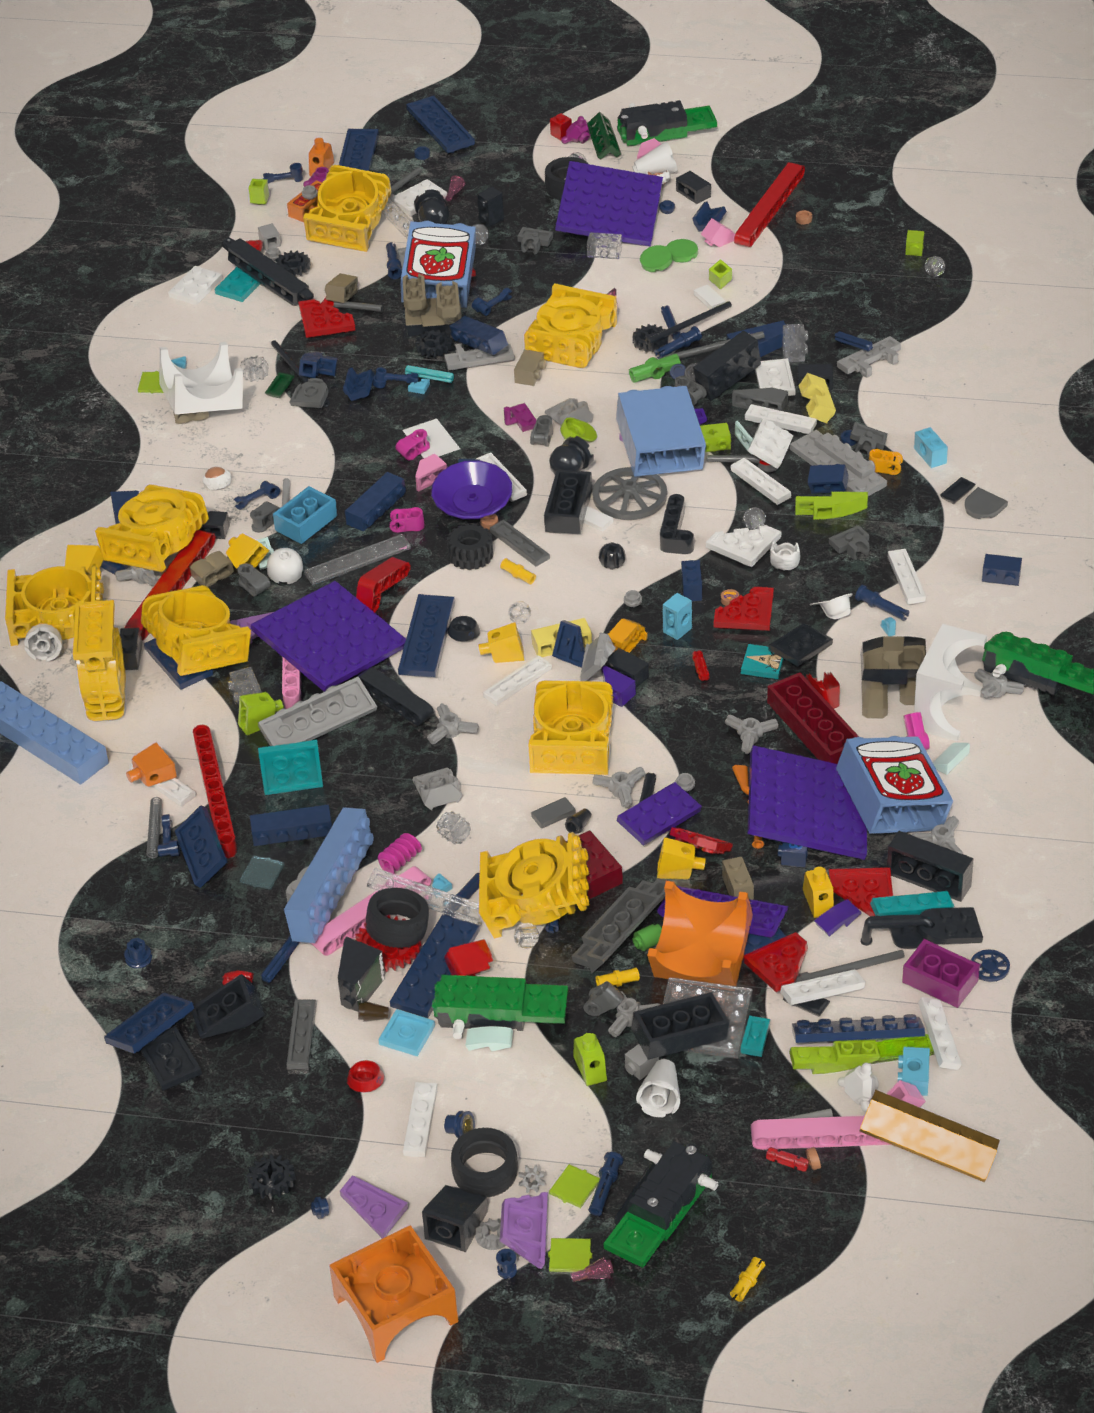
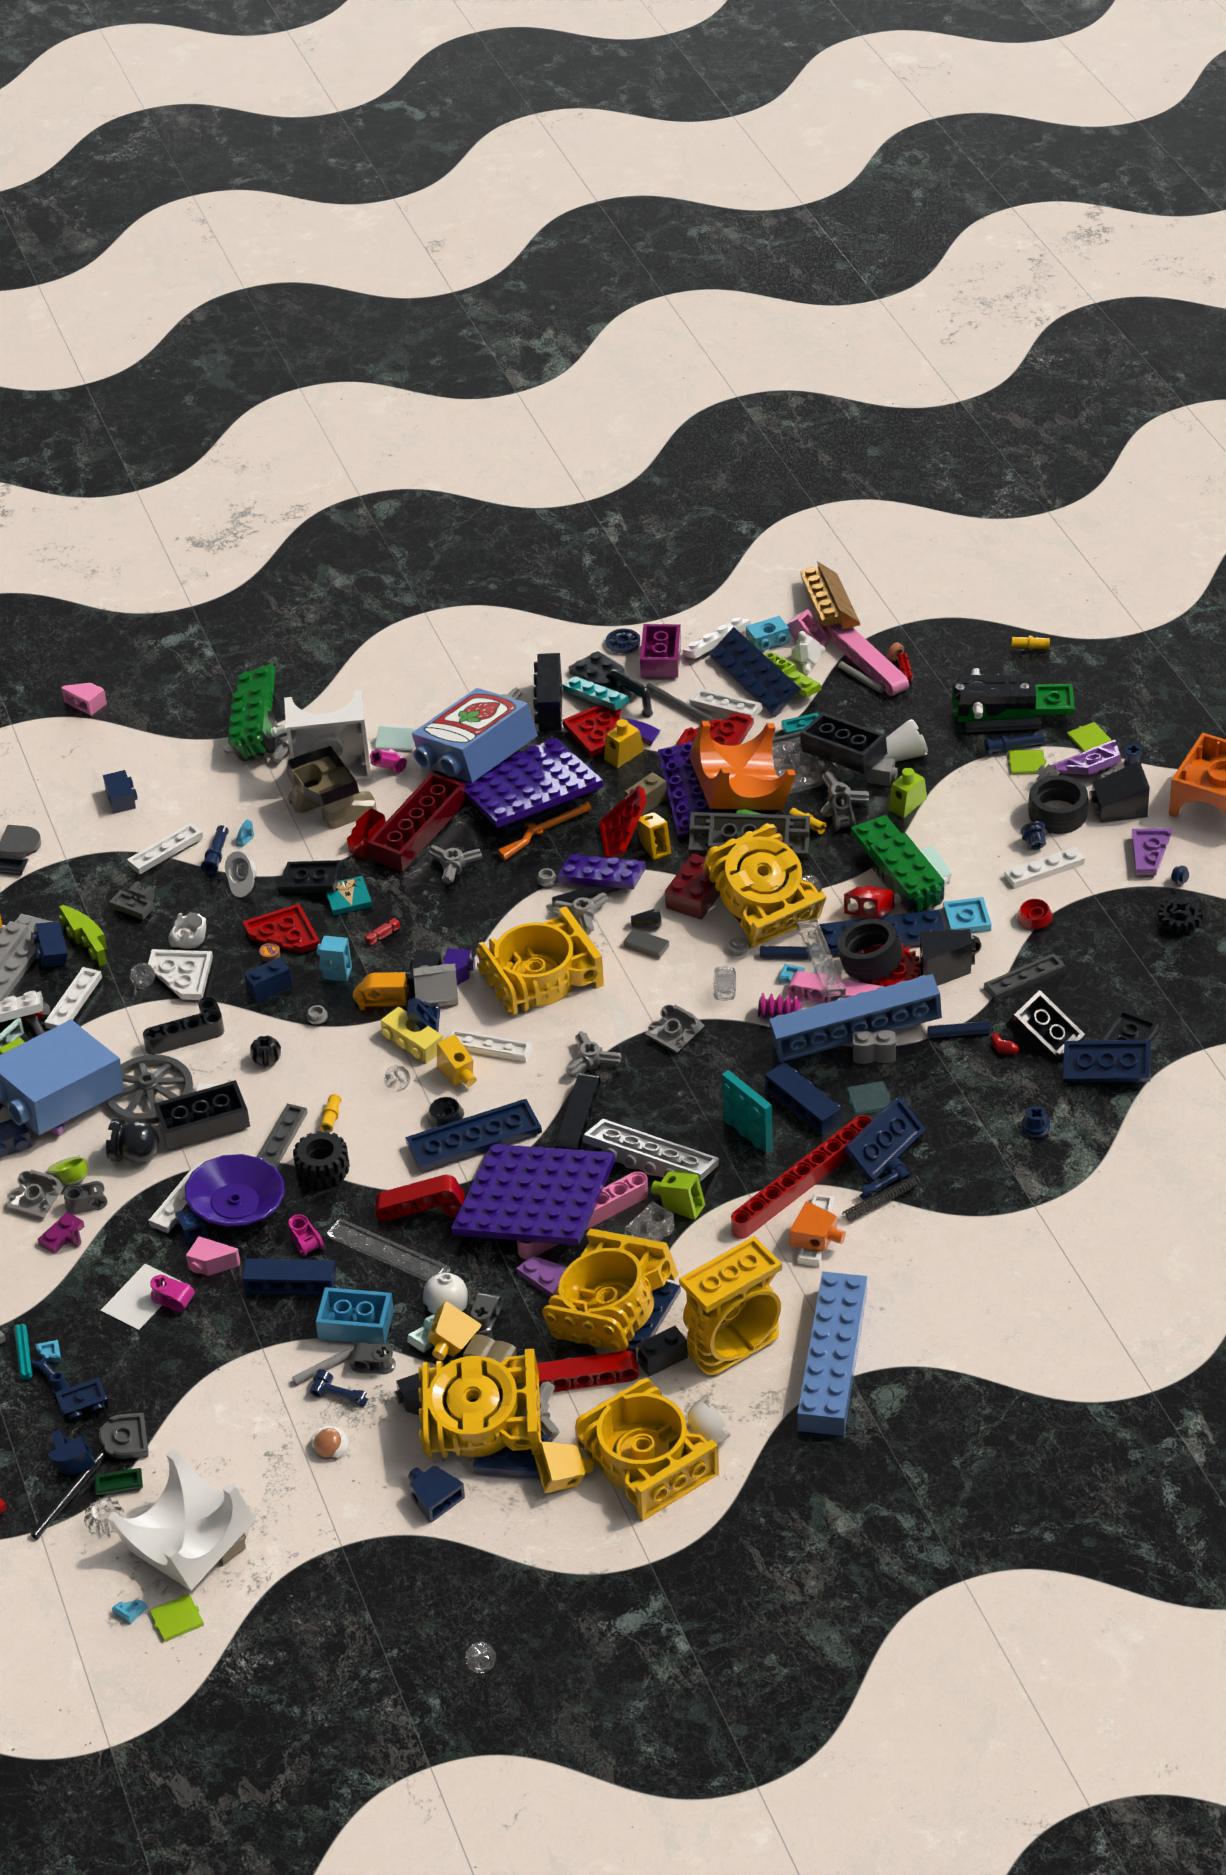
camera: 120 degrees left, 0 degrees up
(598, 1270) = (1090, 711): clear pink cone -> none

